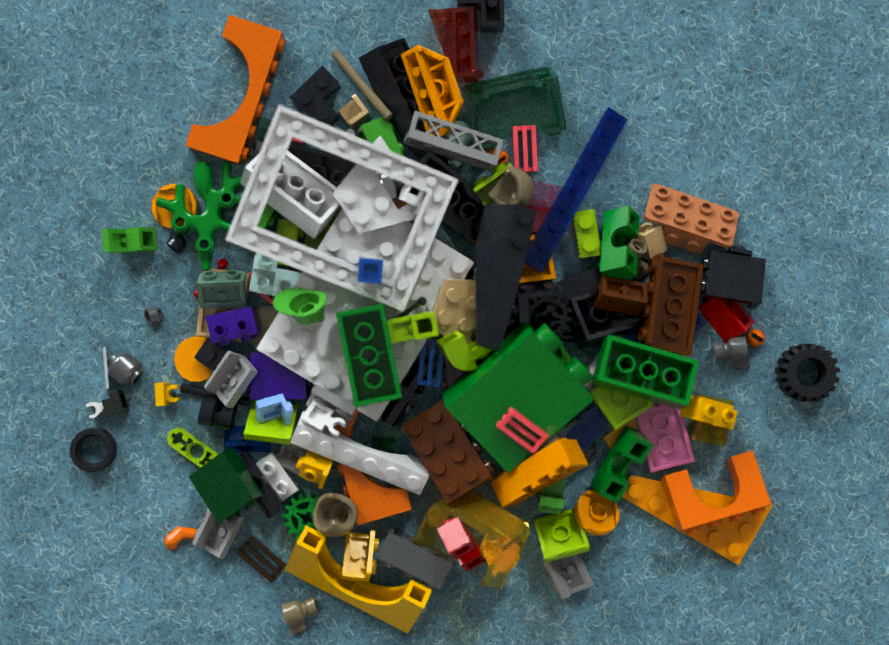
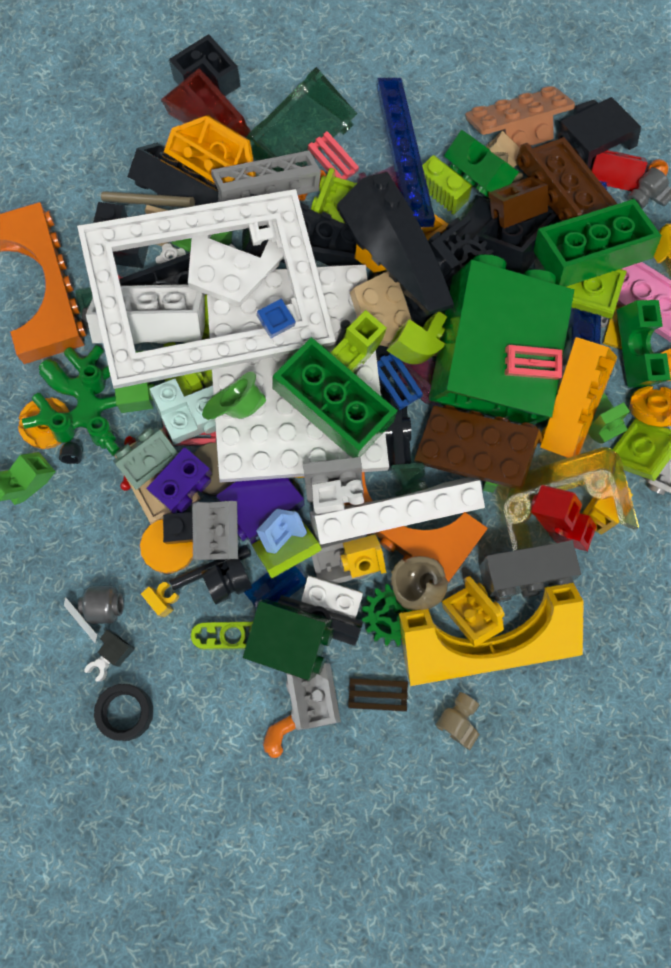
camera: 40 degrees left, 15 degrees down
(152, 315) = (97, 533): dark grey hinge -> none
(513, 188) = (345, 175): dark tan piece -> none

